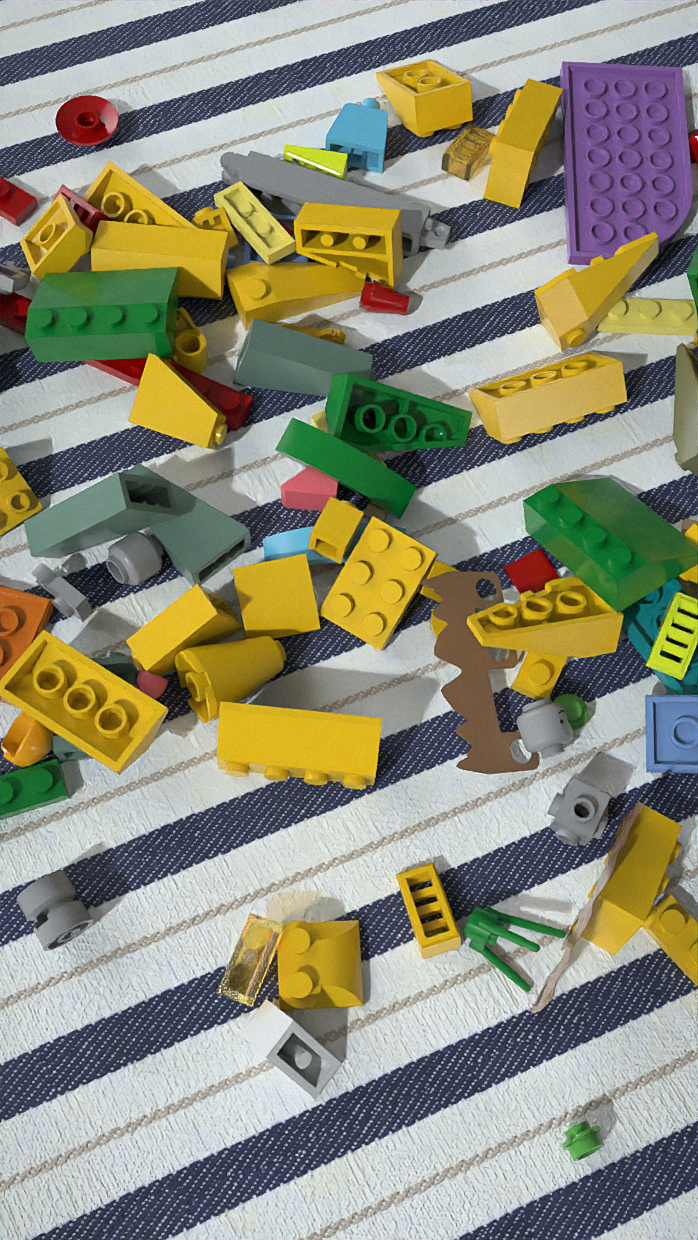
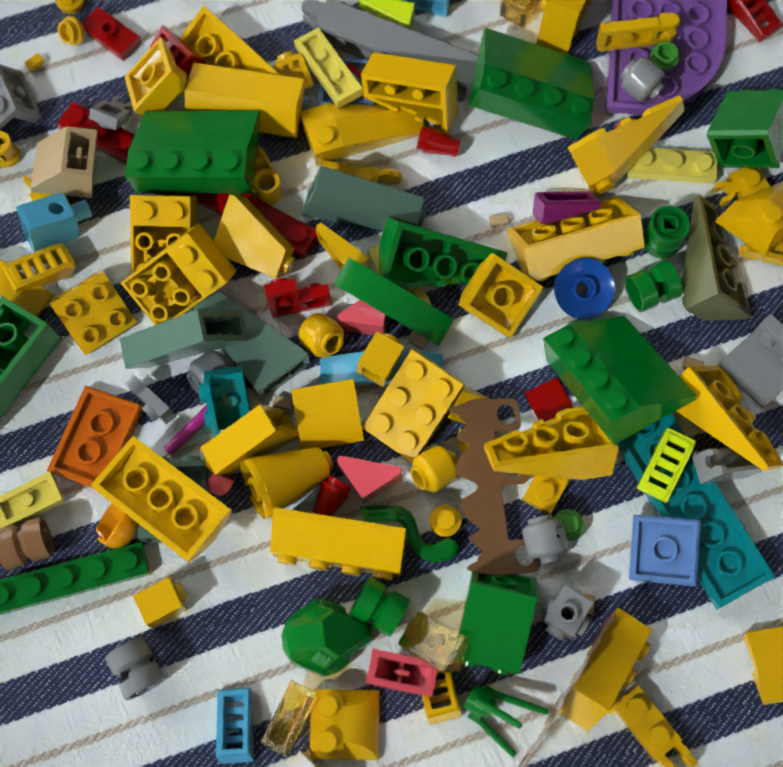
camera: 10 degrees right, 5 degrees up
(70, 412) = (157, 223): none -> yellow slope
(85, 828) = (161, 602): none -> yellow brick
(91, 446) = (179, 276): none -> yellow slope
(123, 613) = (185, 433): none -> dark pink bar
(153, 579) = (225, 397): none -> teal bracket
(190, 1010) = (246, 753): none -> medium azure slope
(223, 473) = (287, 300): none -> red plate
(223, 589) = (283, 403): none -> tan piece
(263, 510) = (321, 335): none -> yellow head
(274, 411) = (339, 248): none -> yellow slope
(287, 689) = (331, 496): none -> red cone
(287, 859) = (324, 637): none -> green helmet
(329, 668) = (367, 477): none -> coral slope
(354, 817) = (381, 607): none -> green wheel
(386, 895) = (401, 673): none -> coral slope
(407, 655) = (434, 469): none -> yellow head
(415, 752) = (435, 552): none -> green piece
(423, 715) = (445, 520): none -> yellow plate
(424, 856) = (434, 643): none -> clear yellow slope
(458, 381) = (498, 220): none -> tan piece
(467, 457) = (499, 295): none -> yellow slope
(486, 236) = (533, 85): none -> green slope
(495, 828) = (498, 620): none -> green slope
(528, 360) = (556, 206): none -> magenta slope
(578, 445) = (598, 290): none -> blue dish
(596, 176) = (637, 32): none -> yellow hinge
(608, 223) = (642, 79): none -> light grey head
(629, 200) = (665, 55): none -> bright green plate
(641, 442) = (656, 285): none -> green wheel
(650, 383) = (666, 231): none -> green wheel

